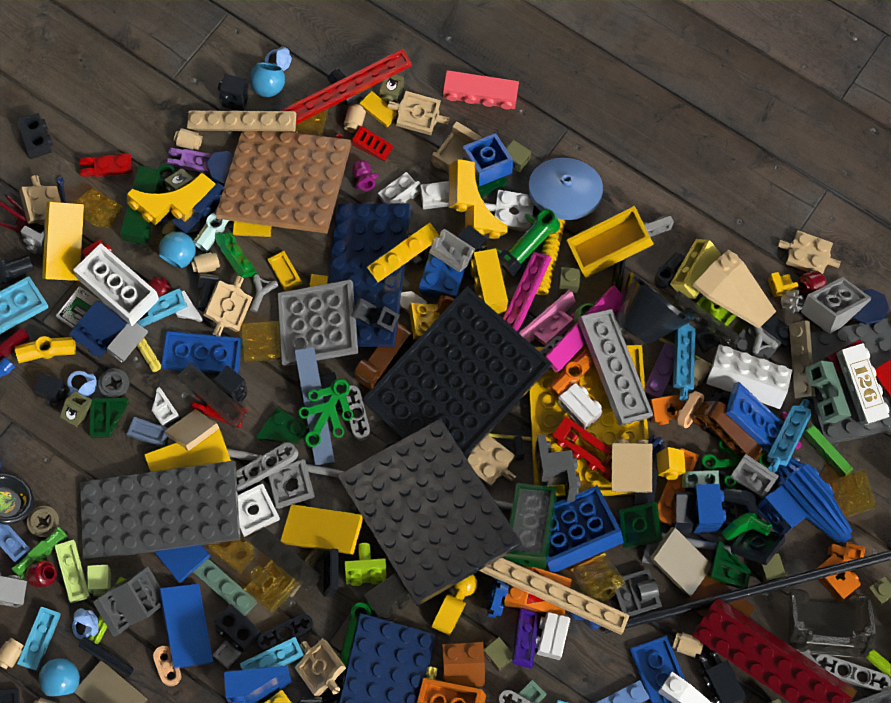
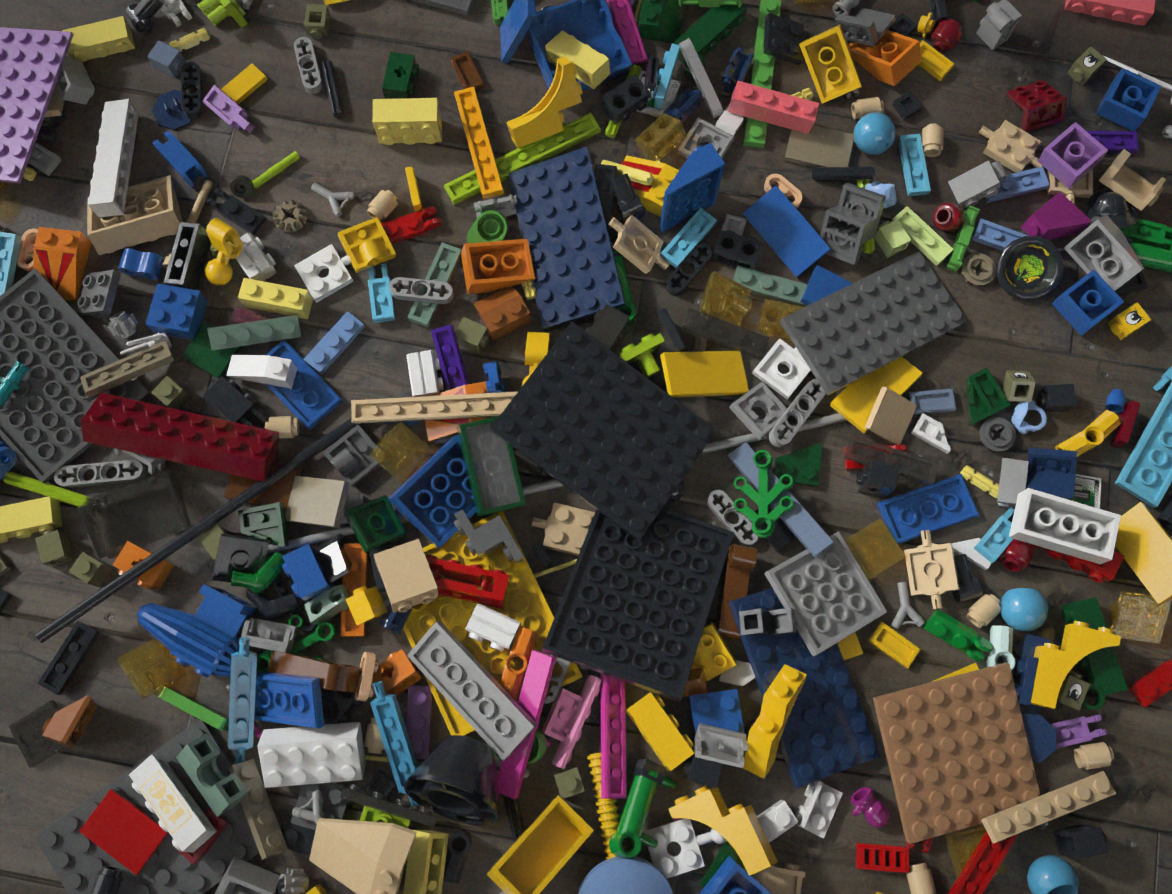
camera: 160 degrees right, 5 degrees up
(848, 552) = (133, 599): orange plate -> none

